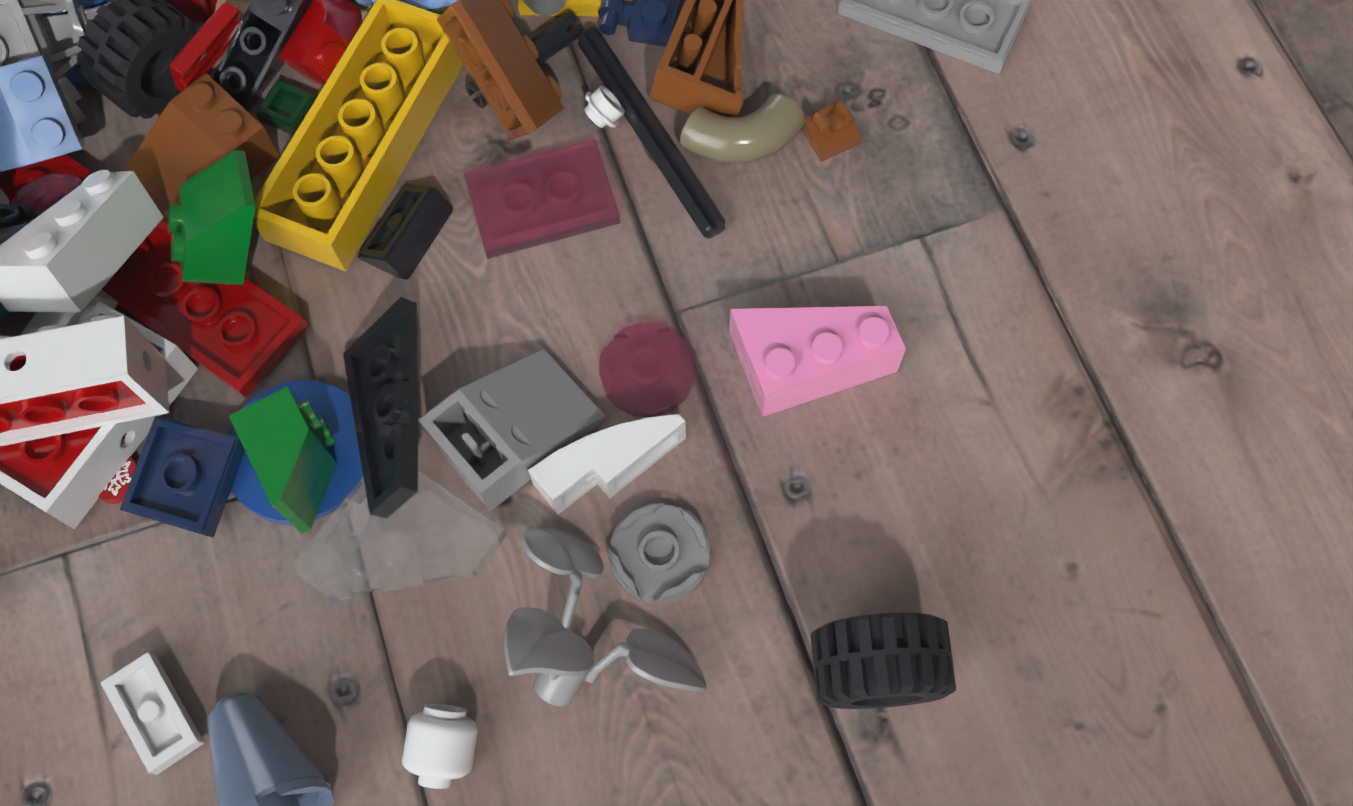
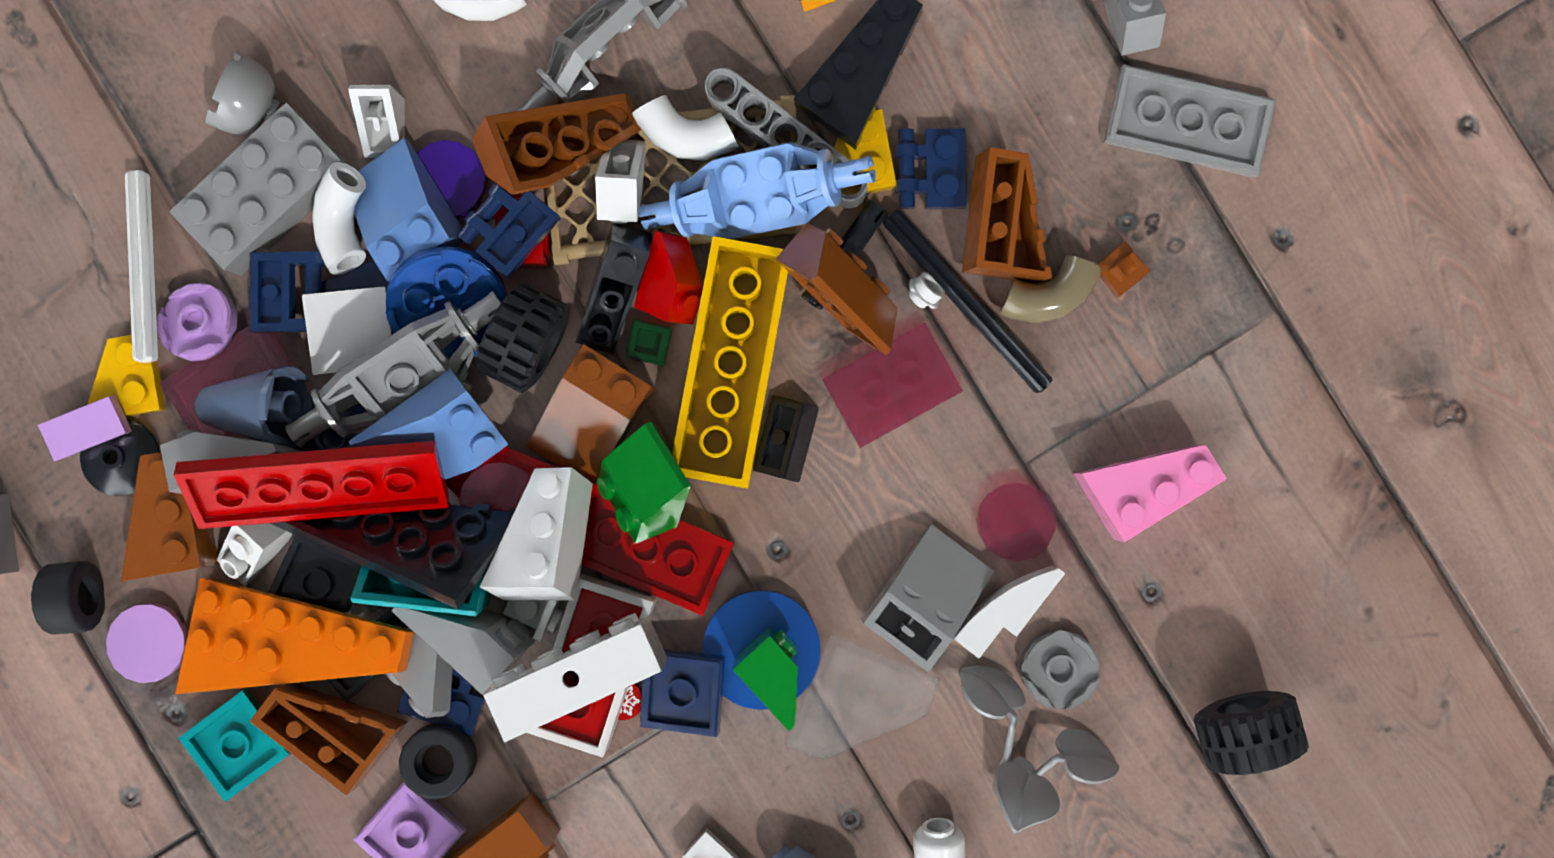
camera: 15 degrees left, 20 degrees up
(206, 47) = (576, 320): red tile -> none
(384, 406) = (826, 603): black wing -> none

